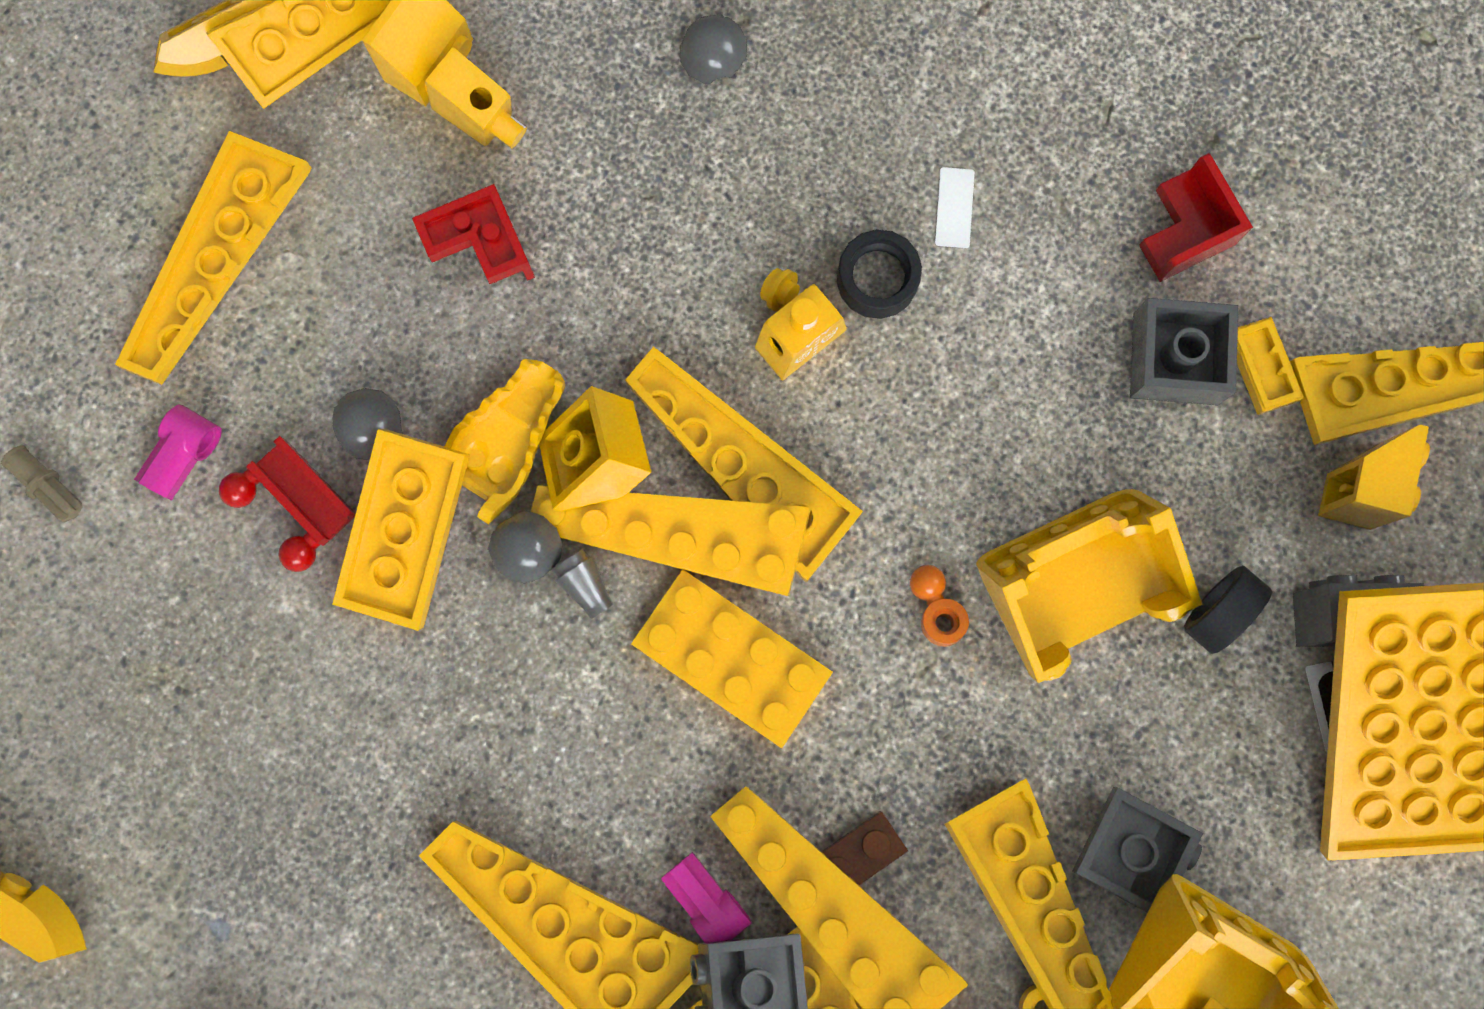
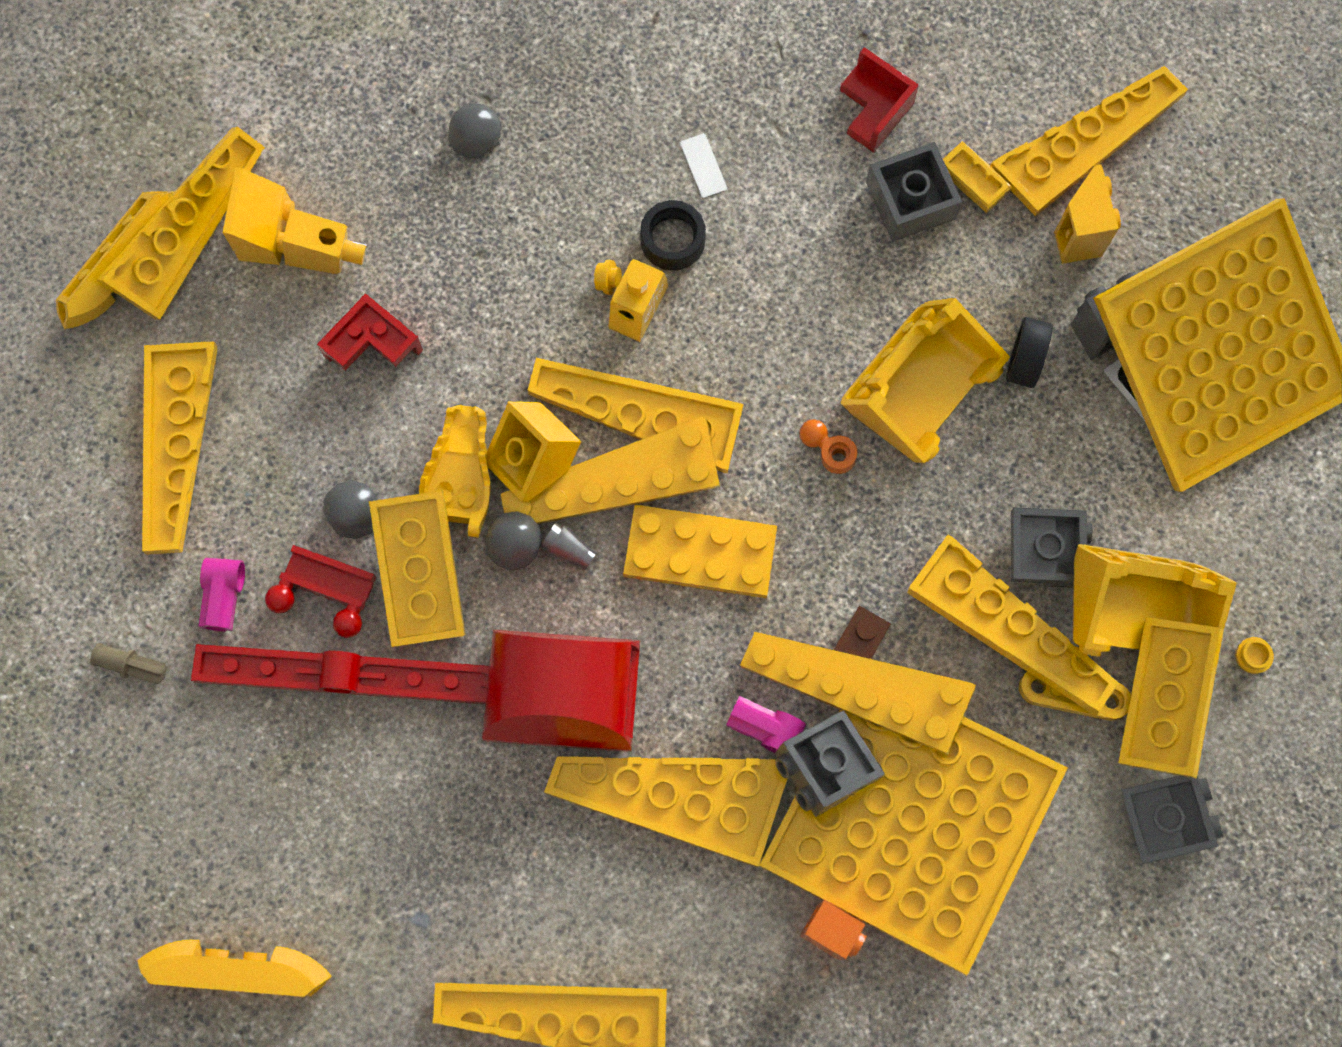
camera: 25 degrees left, 5 degrees down
(464, 730) = (533, 691): none -> red plate

